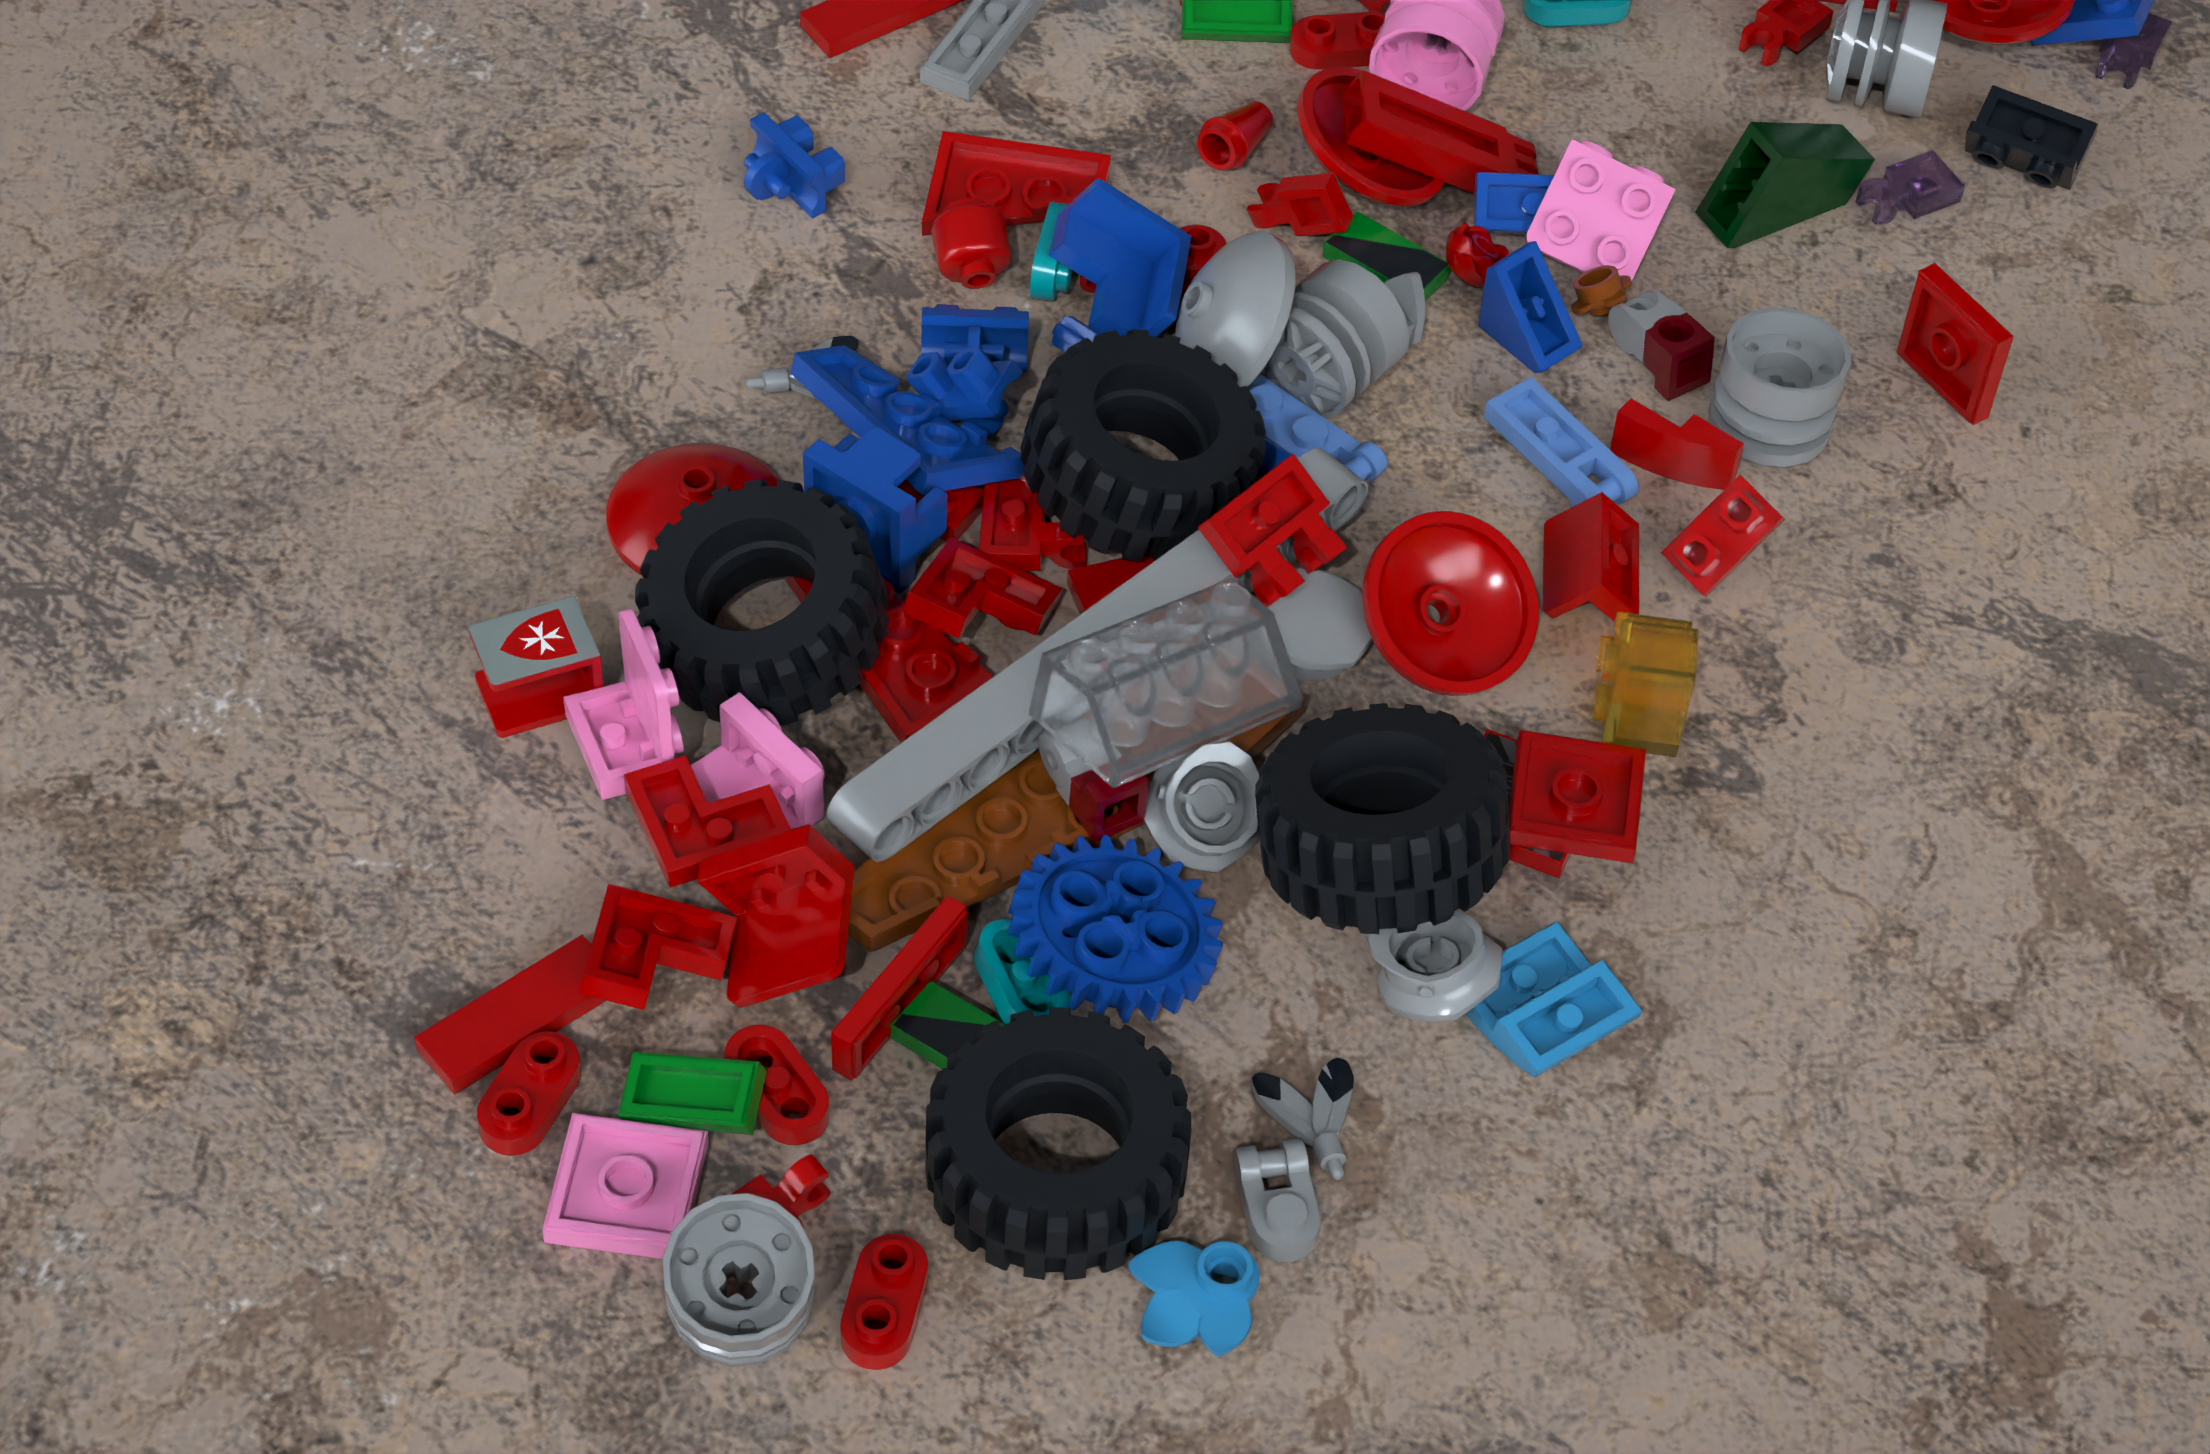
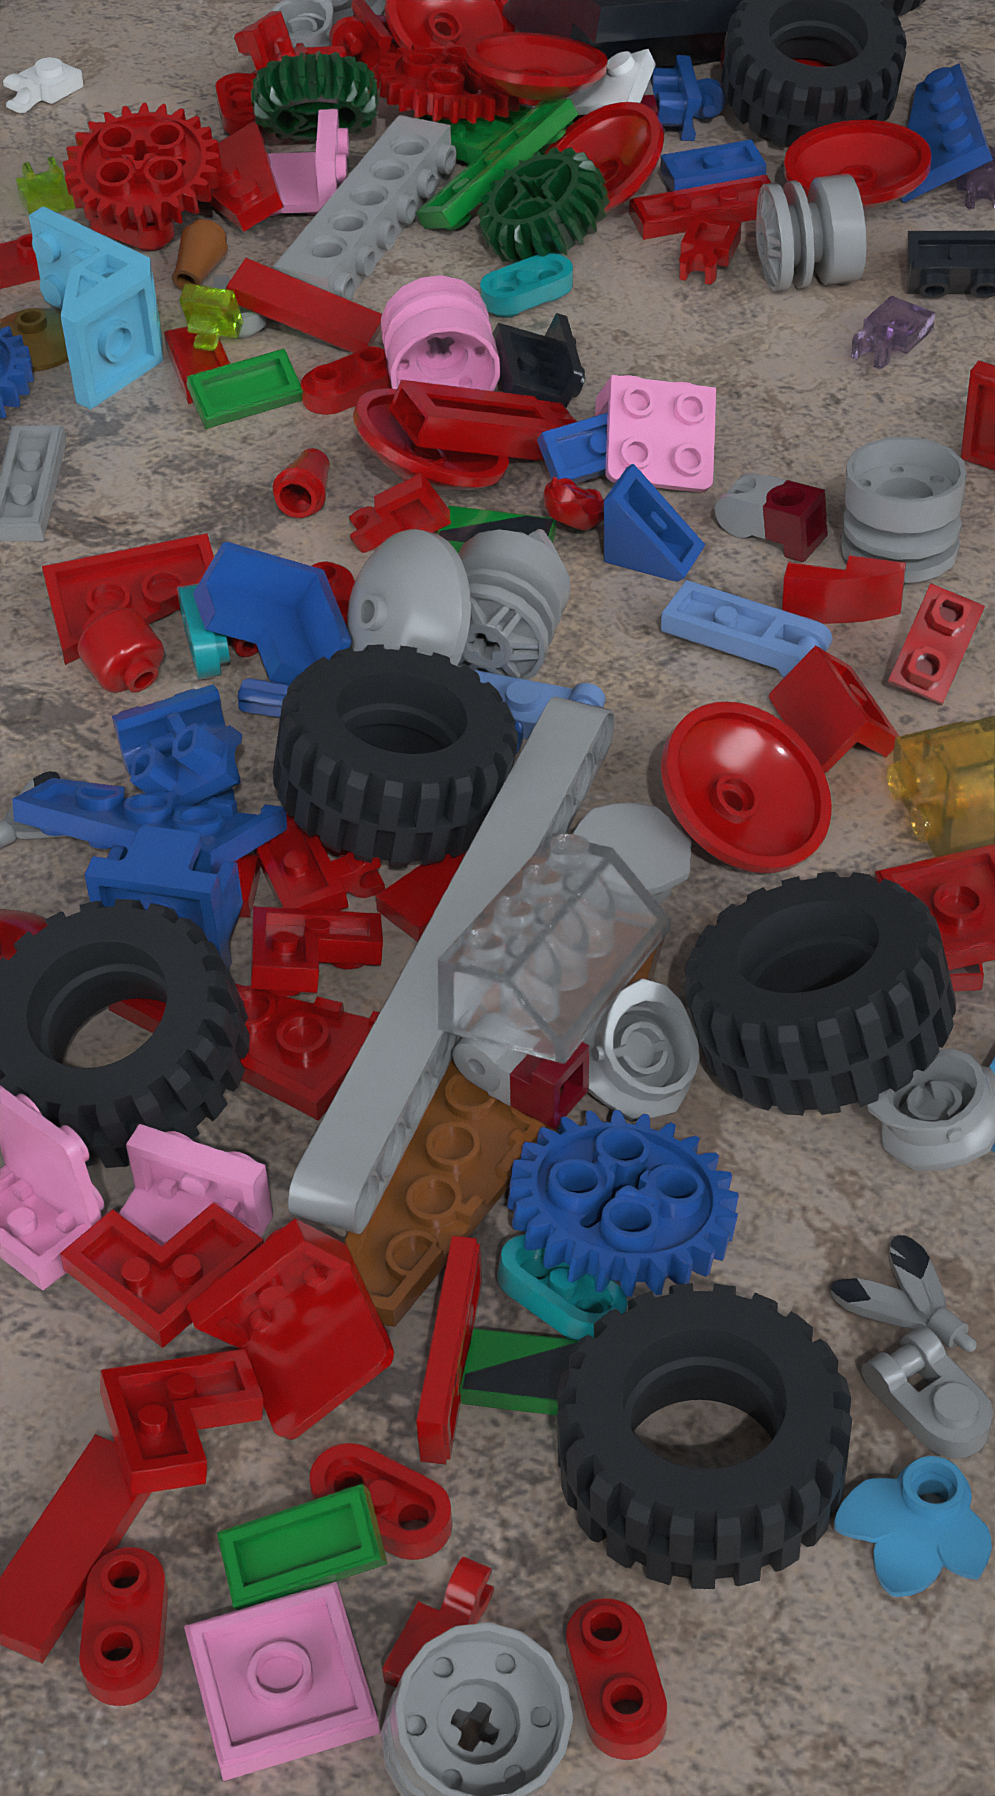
camera: 20 degrees left, 5 degrees down
(1264, 516) = (552, 769): red plate -> none
(1532, 91) = (539, 363): none -> black bracket
(1599, 290) = (695, 494): dark orange plate -> none
(1782, 178) = (787, 358): dark green slope -> none

